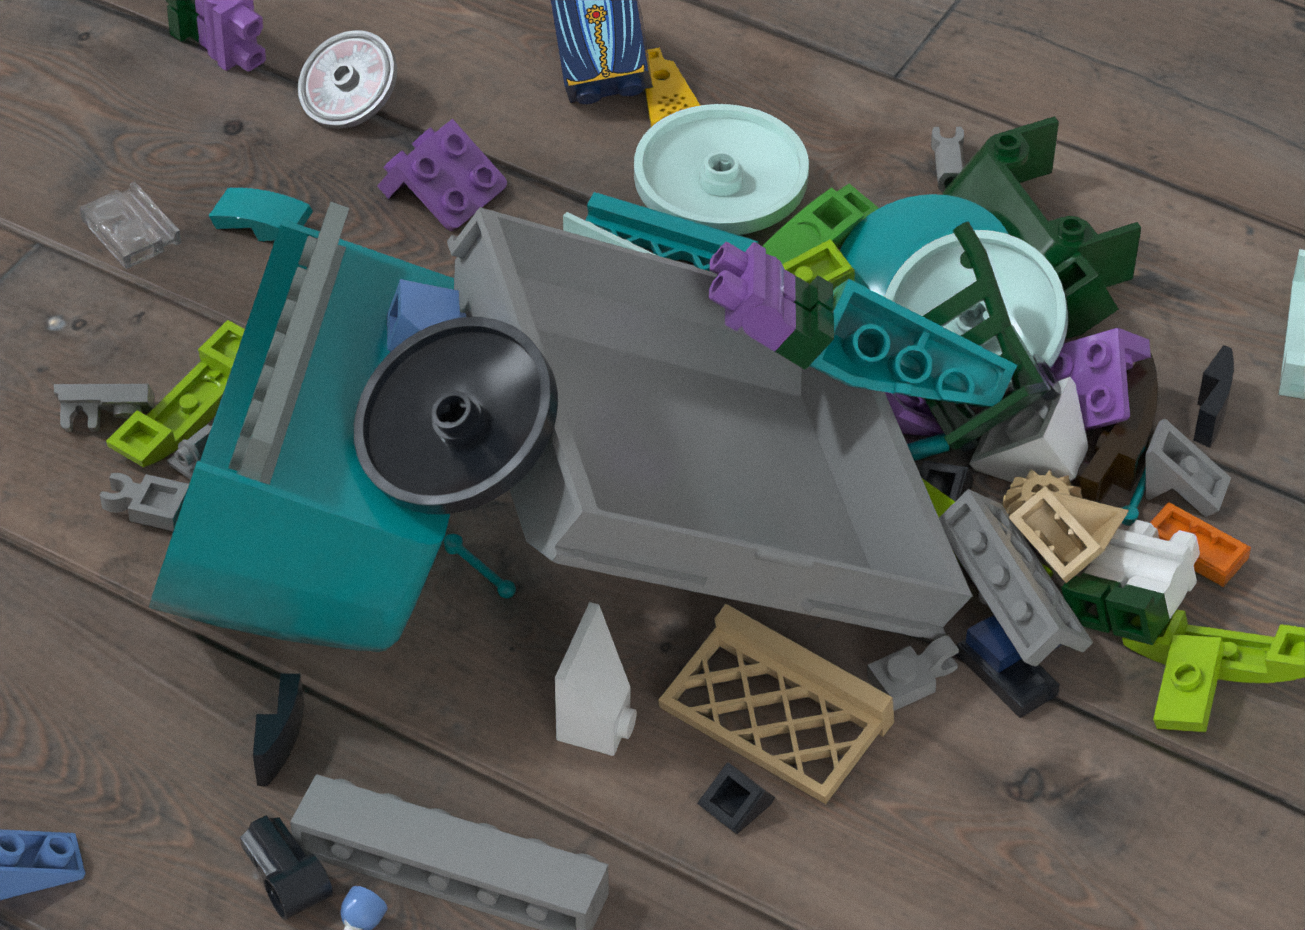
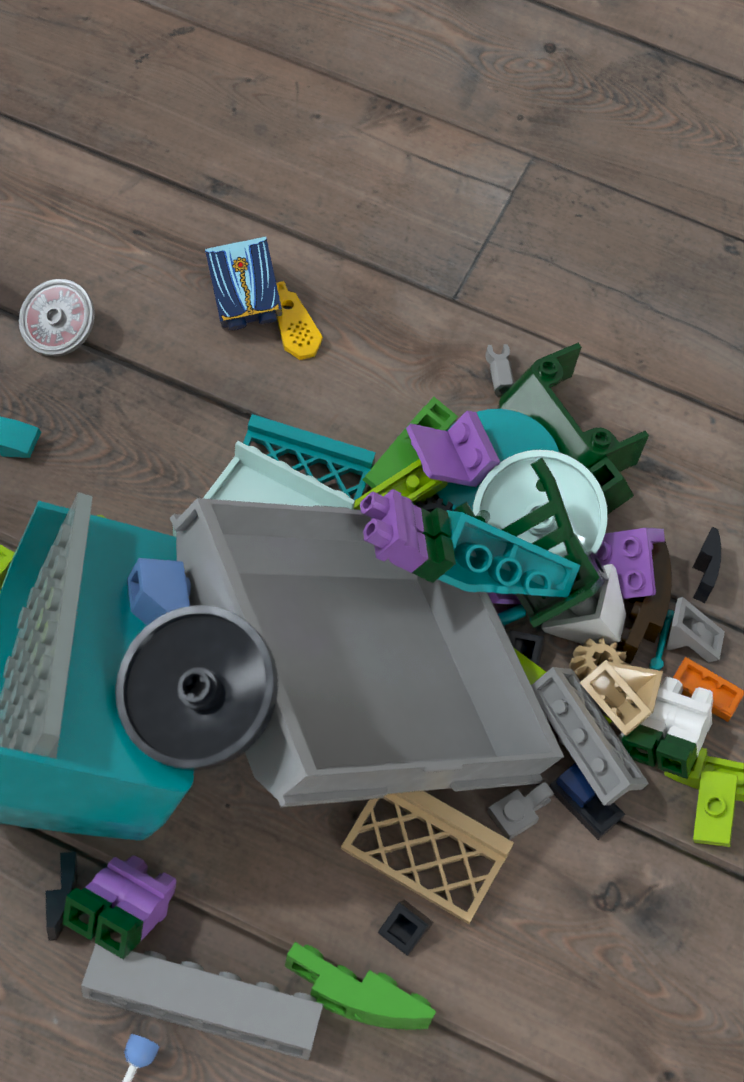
camera: 15 degrees left, 10 degrees up
(287, 873) = (84, 1026): black piece -> none
(353, 733) = (121, 902): none -> hips
(445, 174) = (137, 398): medium lavender bracket -> none
(593, 689) = (297, 852): white slope -> none
(672, 874) = (371, 1002): none -> bright green slope
(722, 167) = (341, 388): light aqua dish -> none
(866, 244) = (456, 455): none -> medium lavender bracket

